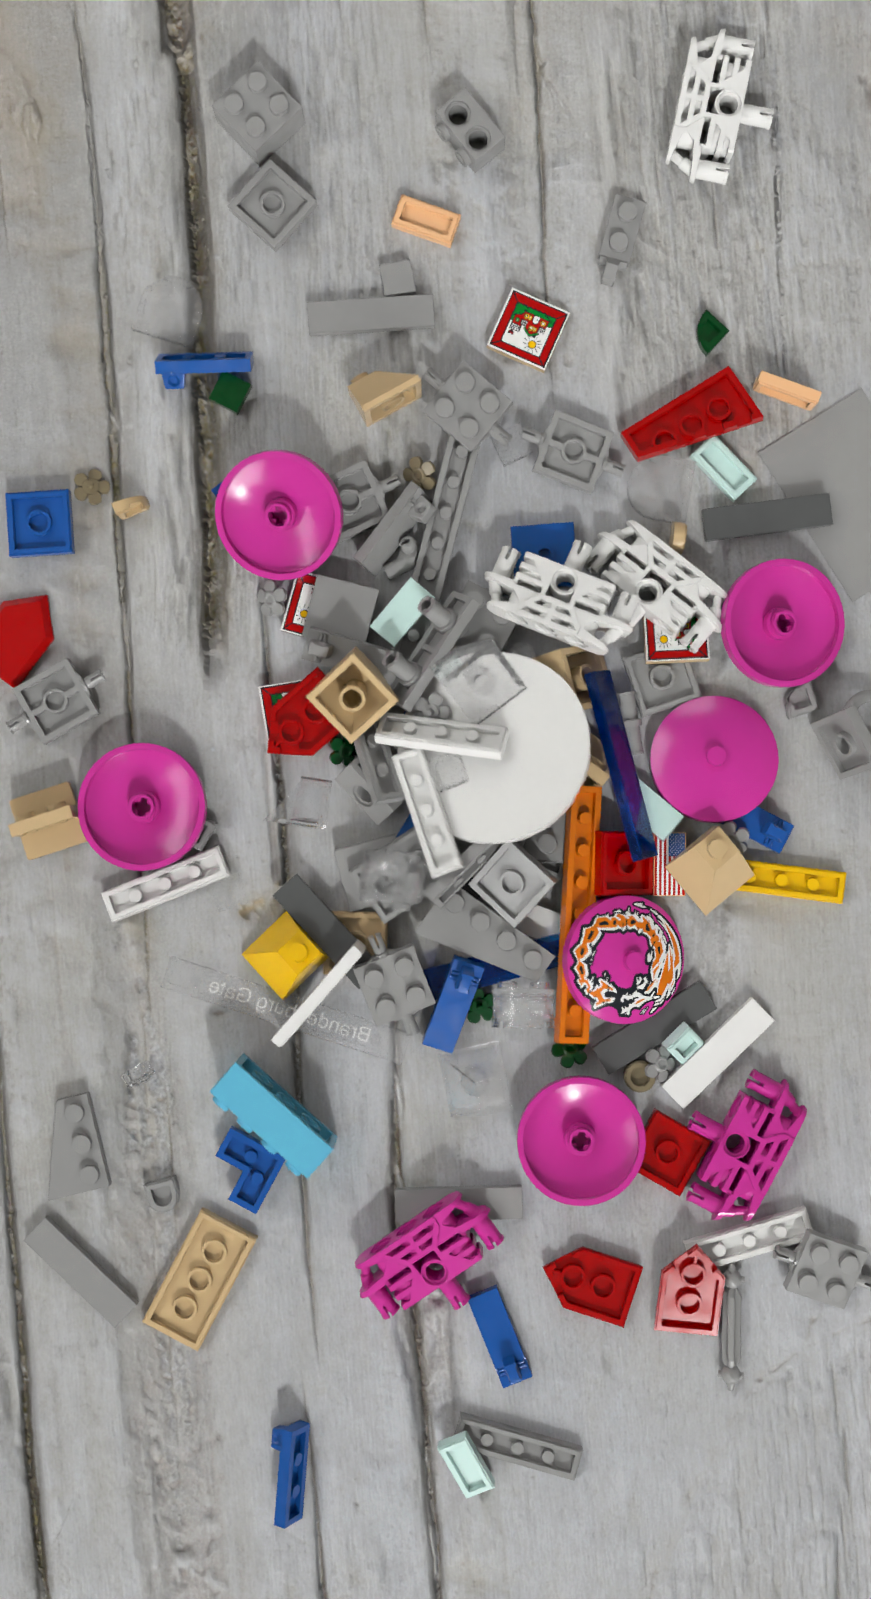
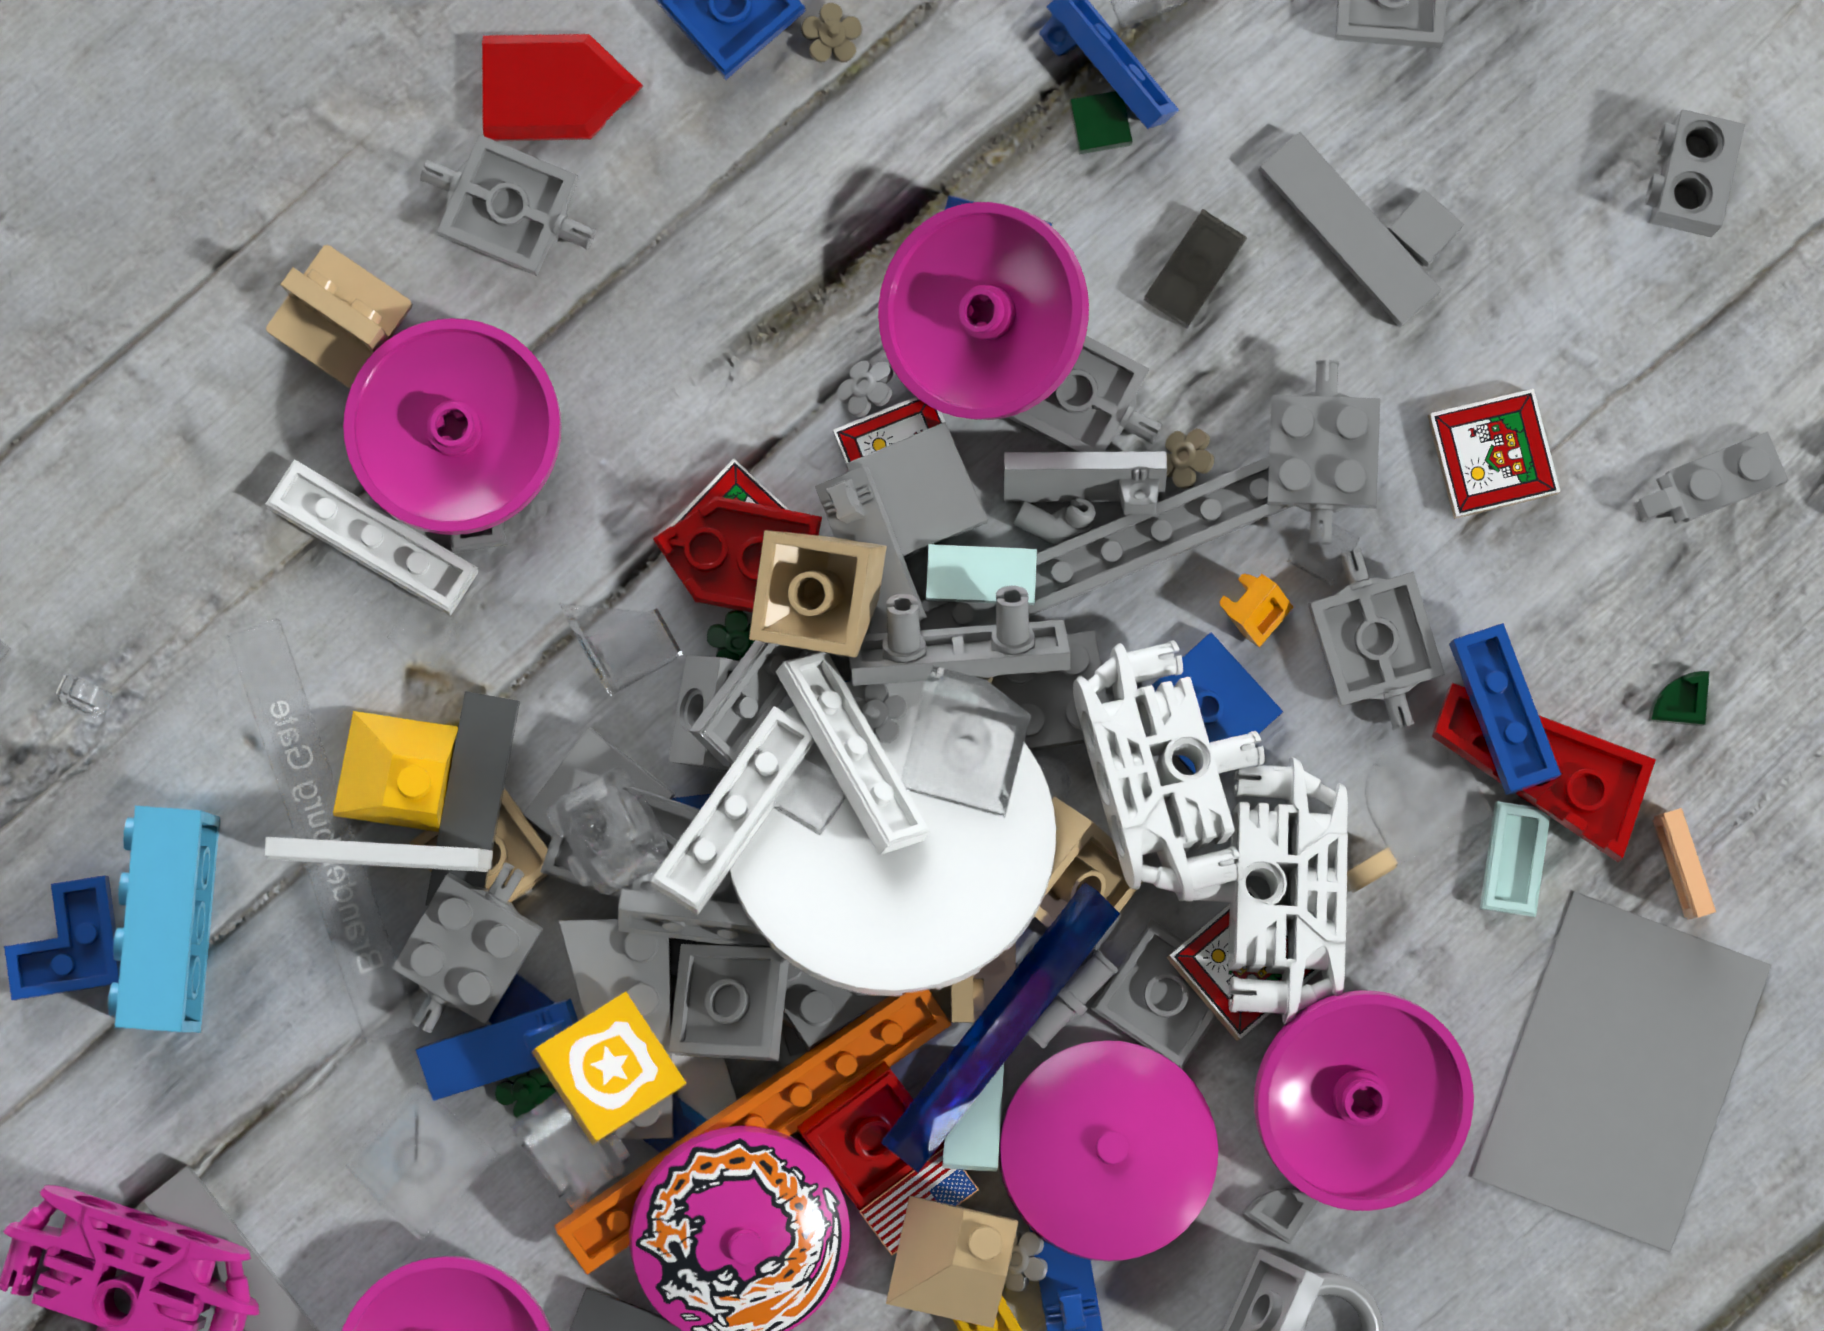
camera: 50 degrees right, 5 degrees down
(130, 506) = (845, 106): tan tile -> none
(334, 402) = (1195, 268): none -> clear smoke plate
(383, 393) = (1254, 325): tan slope -> none
(426, 221) = (1533, 206): light nougat tile -> none
(502, 962) = (609, 1068): none -> yellow tile
(517, 496) = (1258, 609): none -> light orange tile
(569, 1053) = (555, 1262): dark green plant -> none
(652, 416) = (1504, 709): none -> blue hinge
(767, 517) = (1494, 970): dark grey tile -> none

